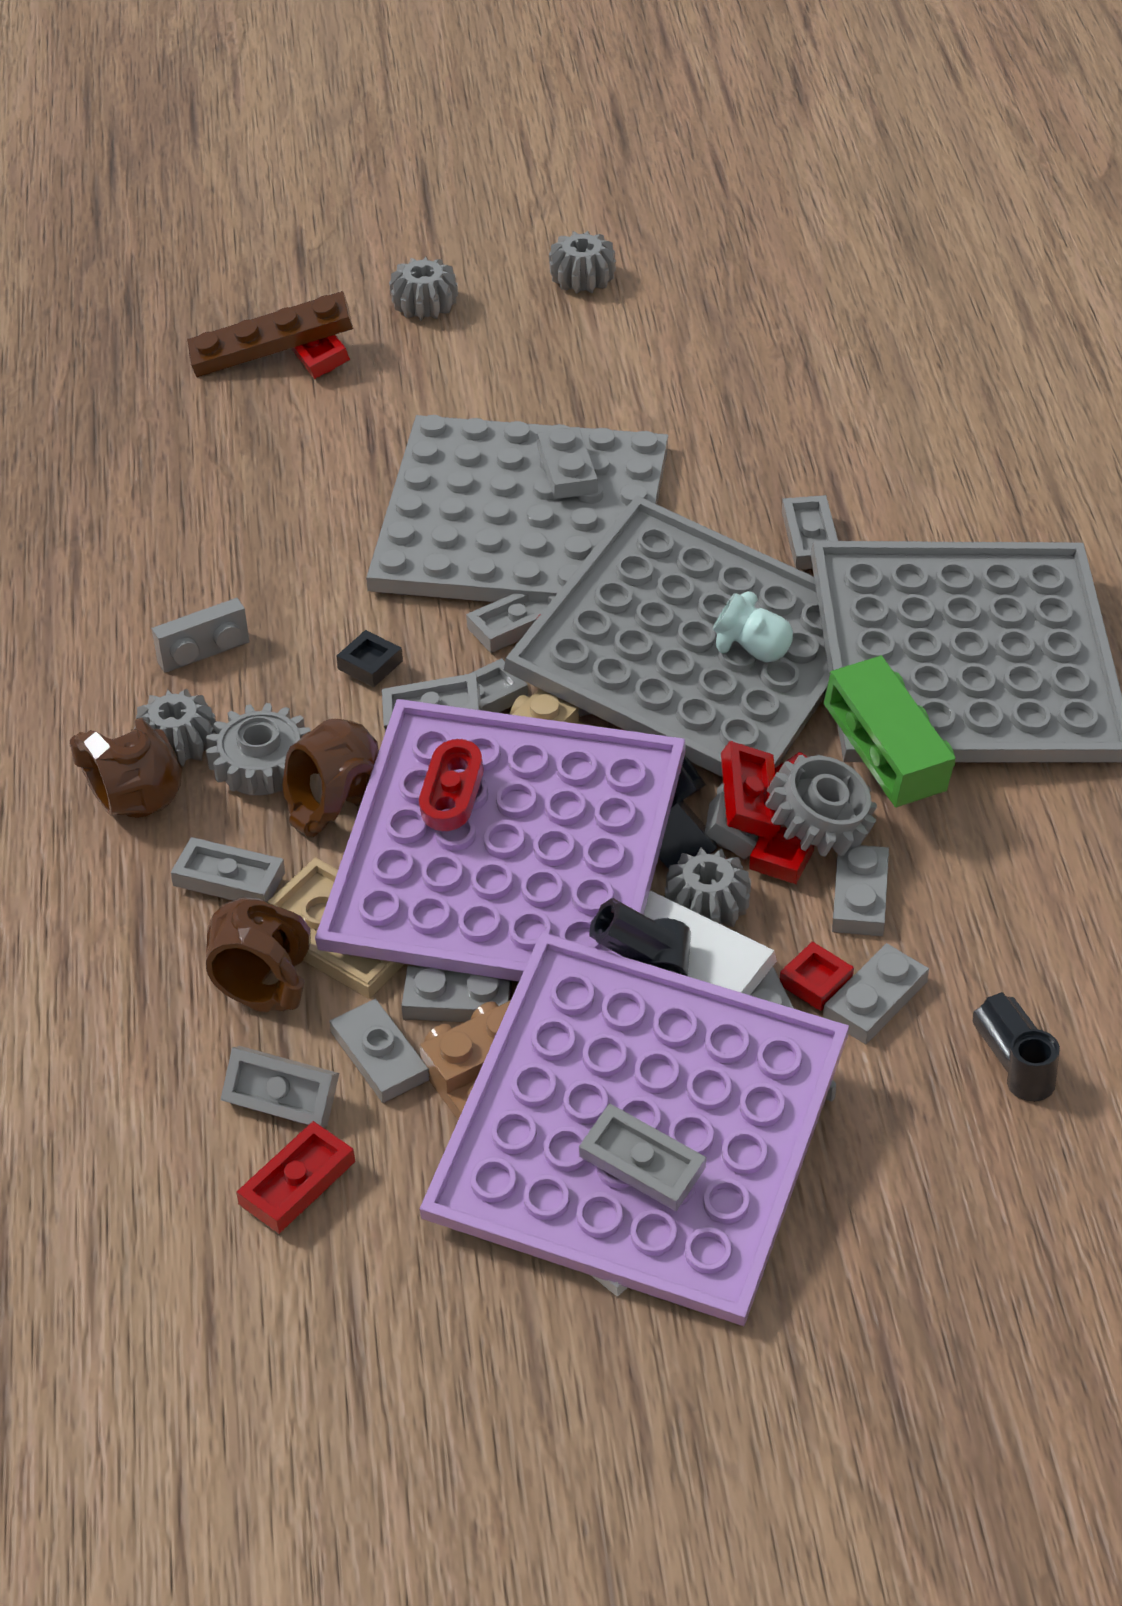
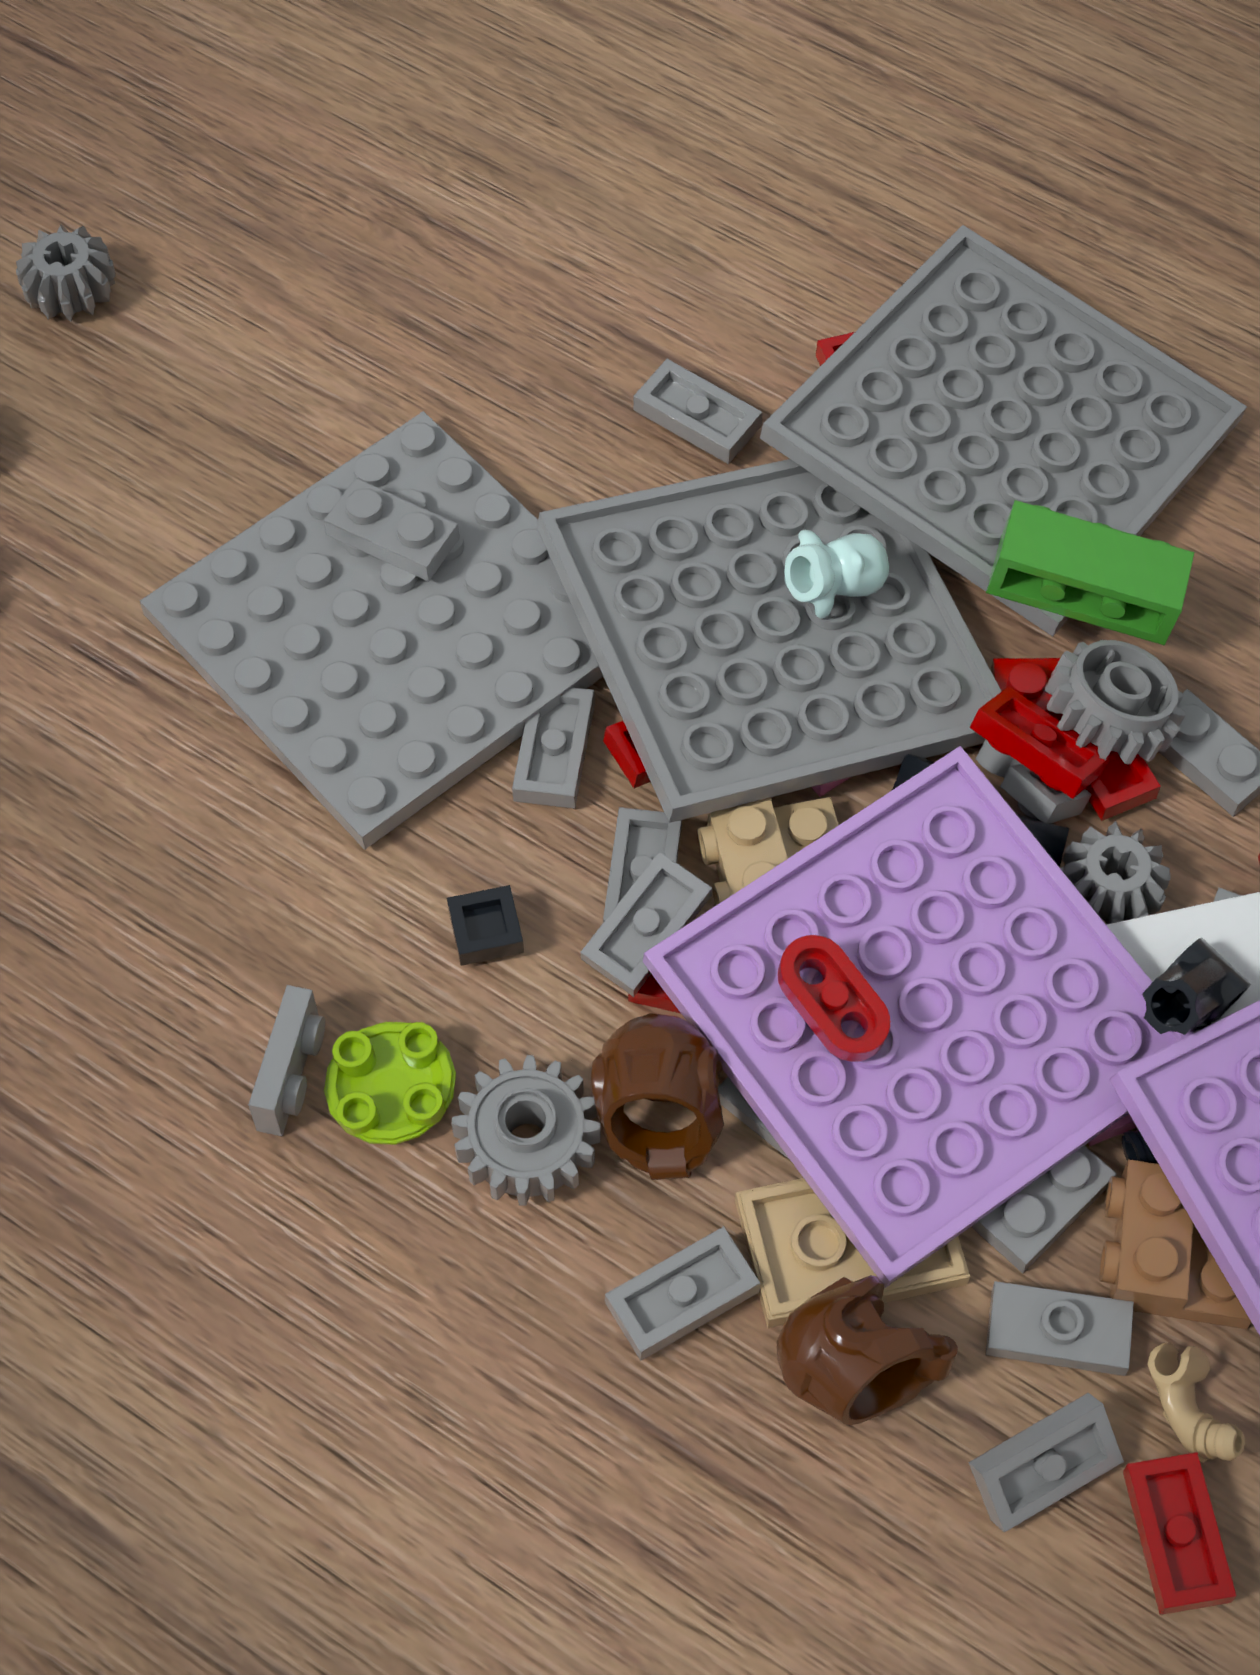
camera: 50 degrees left, 15 degrees up
(131, 772) = (473, 1291): reddish brown helmet -> none
(184, 721) = (386, 1182): light grey gear -> none
(235, 681) = (389, 1082): none -> lime dish
(399, 1119) = (1176, 1391): none -> tan piece

